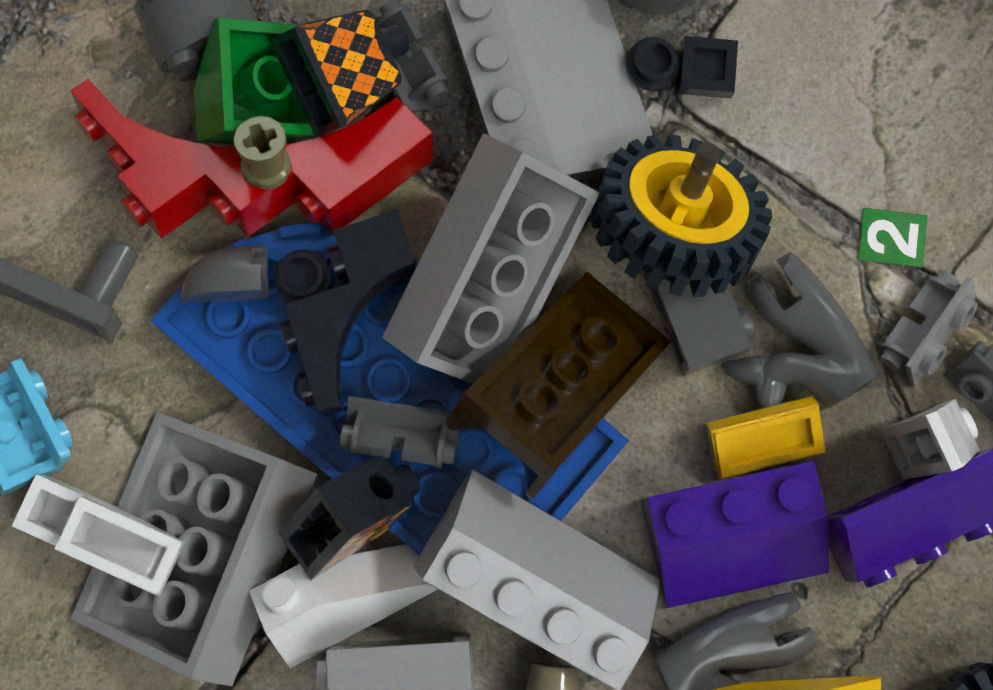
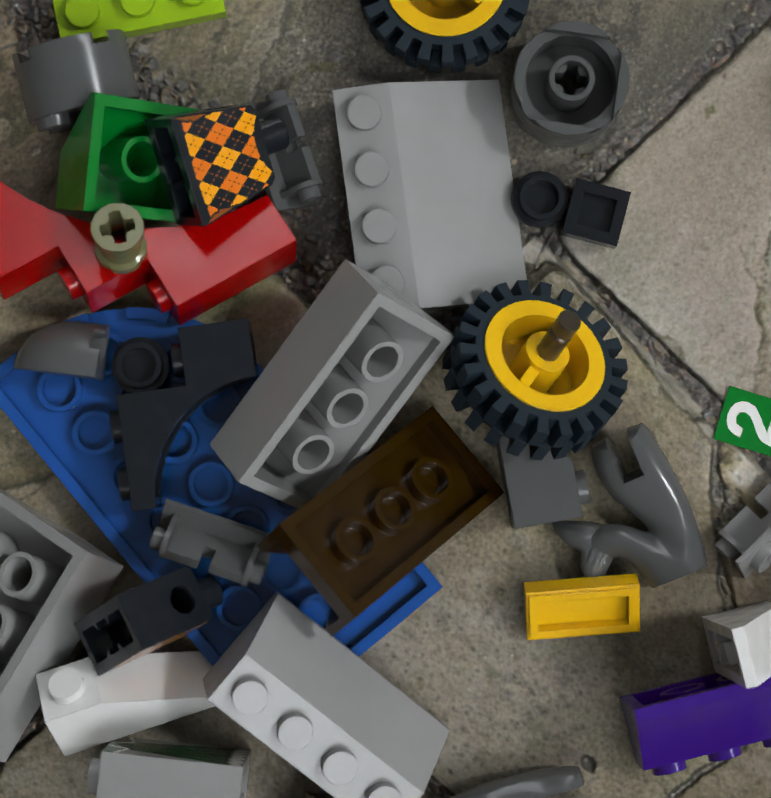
camera: 10 degrees right, 5 degrees up
(738, 534) = (535, 698): dark purple slope -> none

